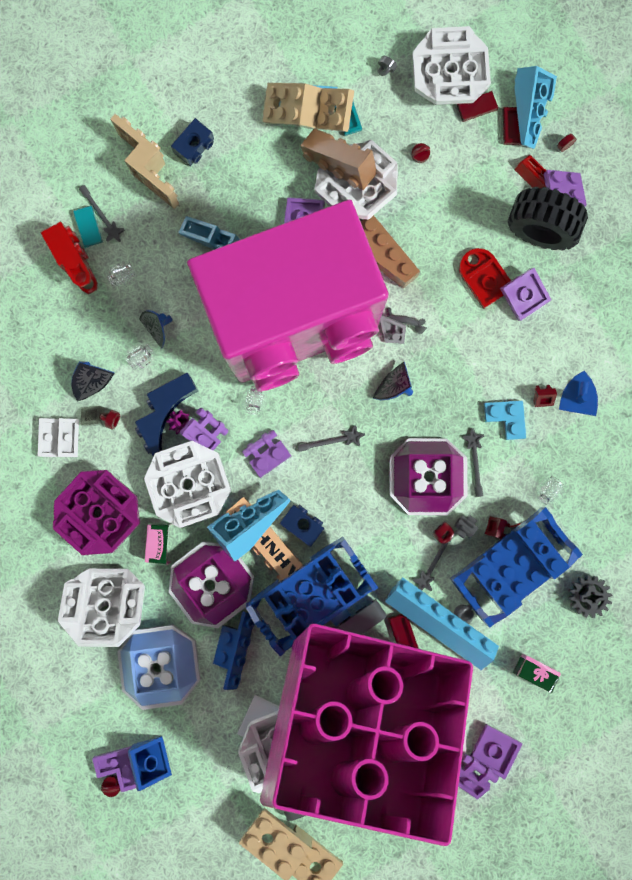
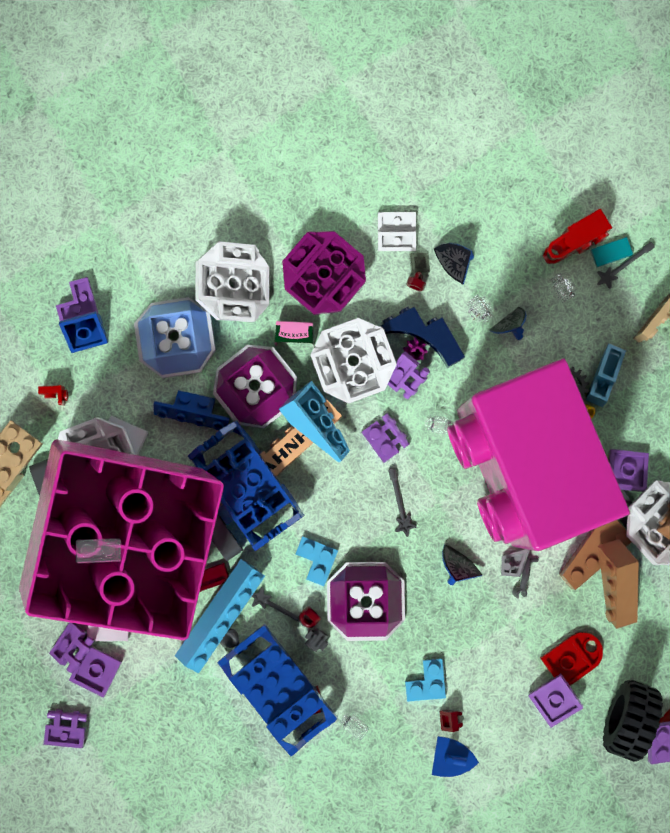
camera: 90 degrees right, 0 degrees up
(110, 786) = (60, 295): dark red tile -> none
(210, 796) = (51, 391): none -> red bracket
(308, 535) = (319, 464): dark blue brick -> none
(381, 764) = (98, 550): none -> clear plate
(385, 519) = (322, 558): none -> medium azure plate
(413, 227) = (620, 583): none -> medium nougat wedge
(473, 441) = (402, 647): dark grey piece -> none
(496, 527) = (316, 670): dark red tile -> none
(537, 673) = (172, 712): dark green piece -> none
(559, 783) = (65, 735): none -> medium lavender plate
(588, 589) = (257, 766): dark grey gear -> none

